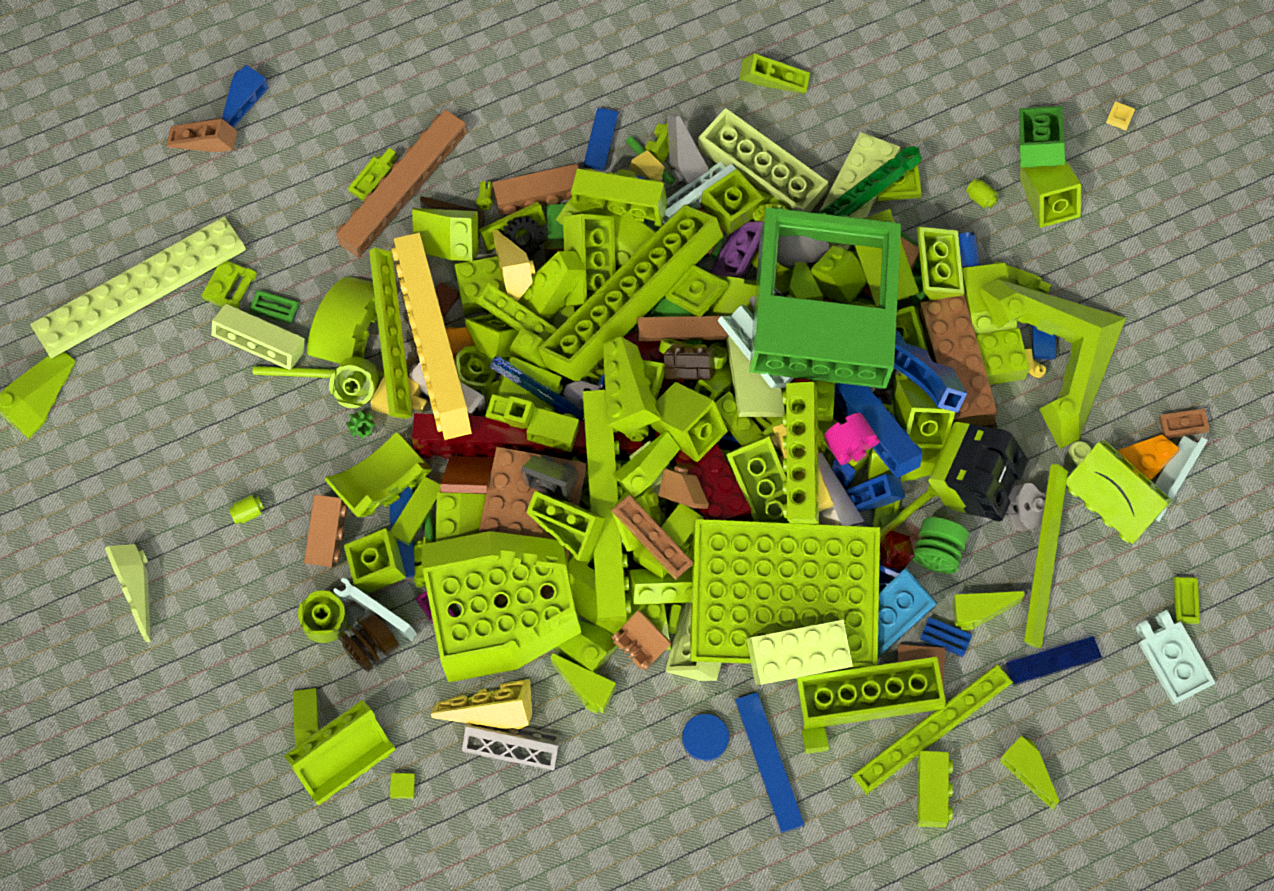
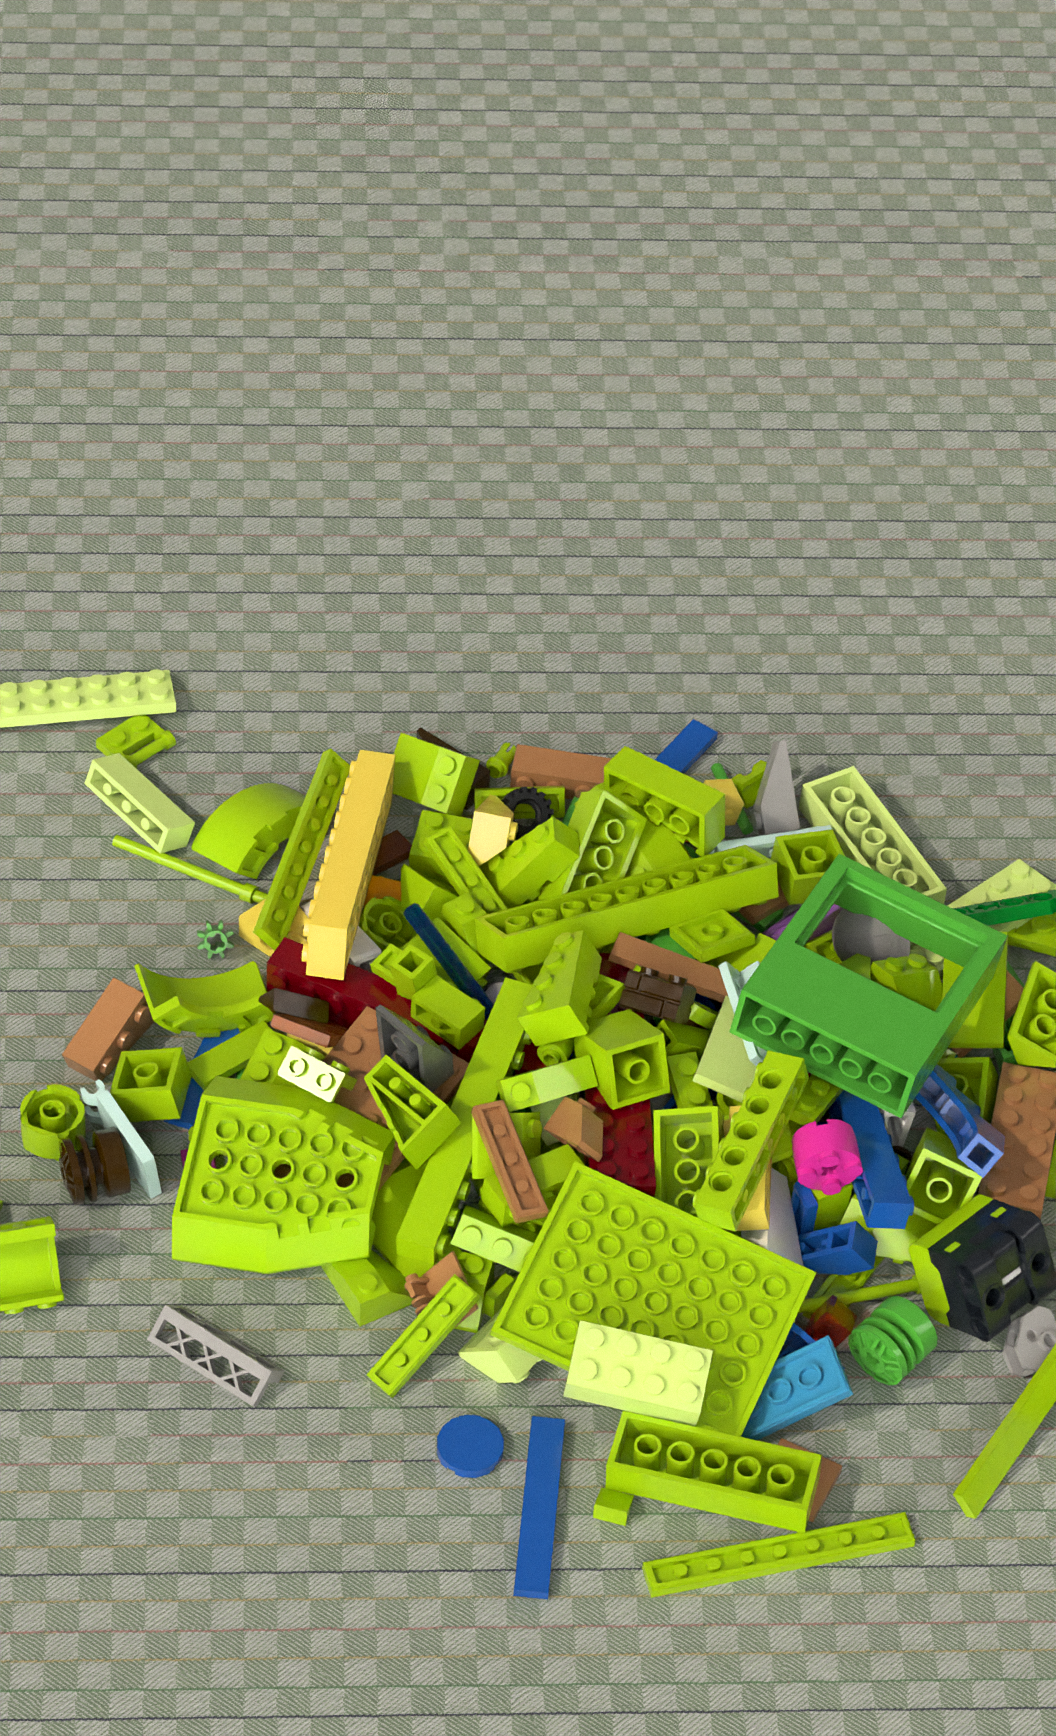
camera: 20 degrees right, 20 degrees down
(203, 136) = (191, 580): medium nougat slope -> none
(244, 92) = (259, 556): blue slope -> none
(246, 509) = (24, 977): lime brick -> none
(271, 314) = (174, 786): bright green tile -> none
(348, 373) = (214, 883): lime brick -> none
(371, 175) = (374, 691): lime hinge -> none
(401, 183) = (407, 709): medium nougat brick -> none
(402, 786) = (50, 1348): lime tile -> none
(446, 464) = (296, 1005): none -> dark brown slope
(490, 518) = (314, 1075): none -> bracket
(498, 708) = (227, 1309): light yellow wedge -> none
(588, 686) = (349, 1329): lime slope -> none
(643, 675) = (423, 1336): none -> lime tile
(773, 74) = (935, 759): lime slope -> none
(934, 789) = (744, 1620): lime brick -> none
(947, 628) = (854, 1452): blue tile -> none
(978, 608) = (918, 1438): lime slope -> none
(1027, 765) = (885, 1640): lime slope -> none
(1053, 661) = (984, 1539): clear blue tile -> none

